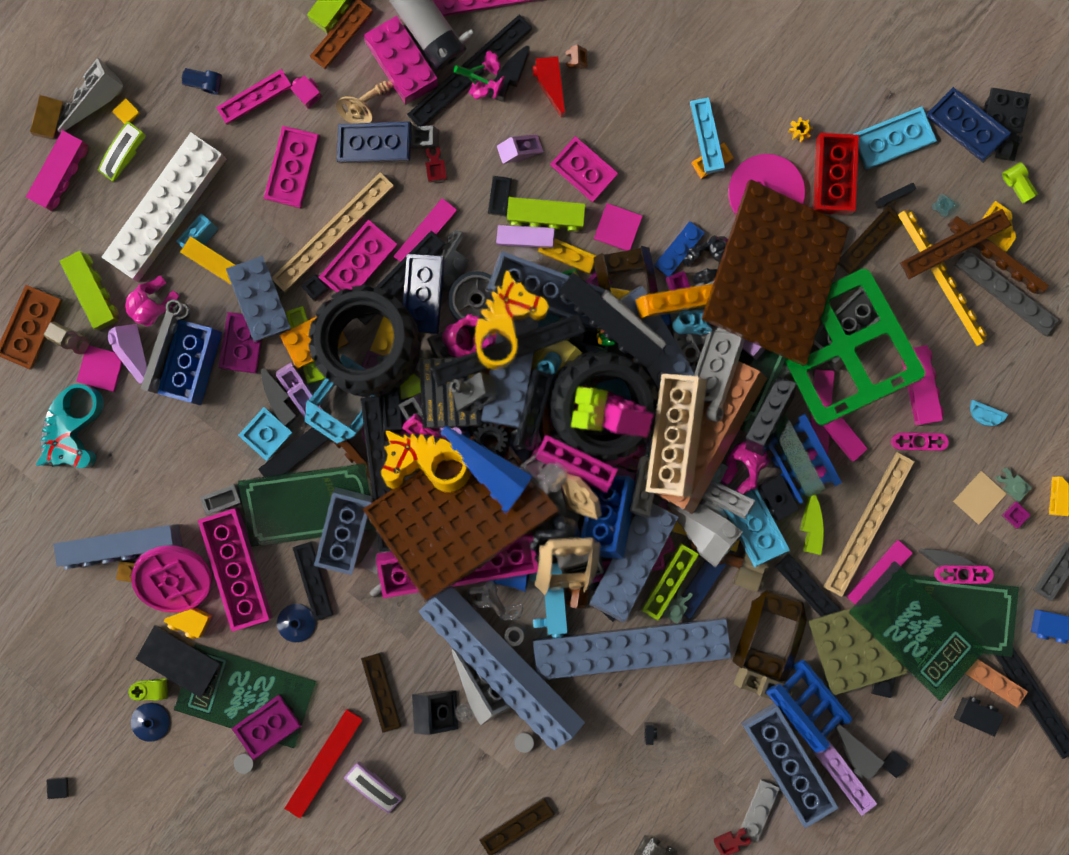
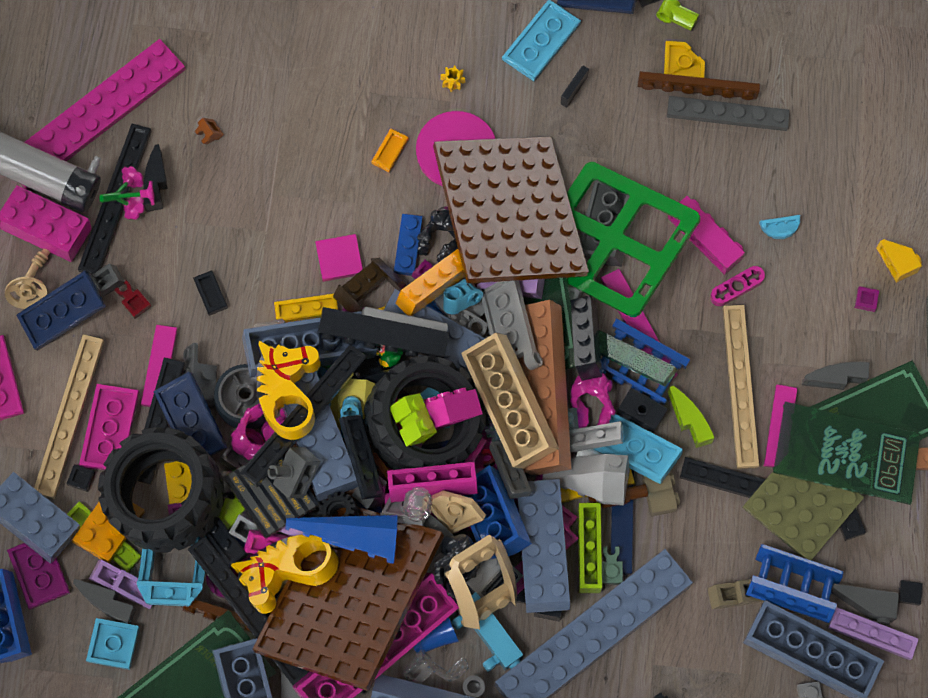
camera: 35 degrees left, 15 degrees down
(293, 453) = (153, 643): black tile -> none
(519, 148) = (203, 239): lavender slope -> none
(525, 236) = (257, 313): lavender tile -> none
(546, 213) = (264, 282): lime brick -> none
(549, 79) = (195, 164): red slope -> none
(578, 599) = (514, 617): dark orange tile -> none
(583, 169) = (275, 224): dark pink plate -> none
(707, 135) = (371, 130): medium azure plate -> none
(762, 661) = (725, 571): dark brown wedge -> none
(835, 173) = (508, 97): red brick -> none
(845, 438) = (665, 321): dark pink tile -> none
(869, 240) = (576, 138): dark brown tile -> none
(942, 199) = (626, 67): clear light blue plate -> none
(947, 283) = (670, 134): yellow plate -> none
(955, 244) = (654, 95): reddish brown tile -> none
(977, 569) = (853, 384): dark pink beam -> none
(979, 497) = (824, 304): tan sticker -> none
(1015, 486) = (850, 274): sand green plate -> none

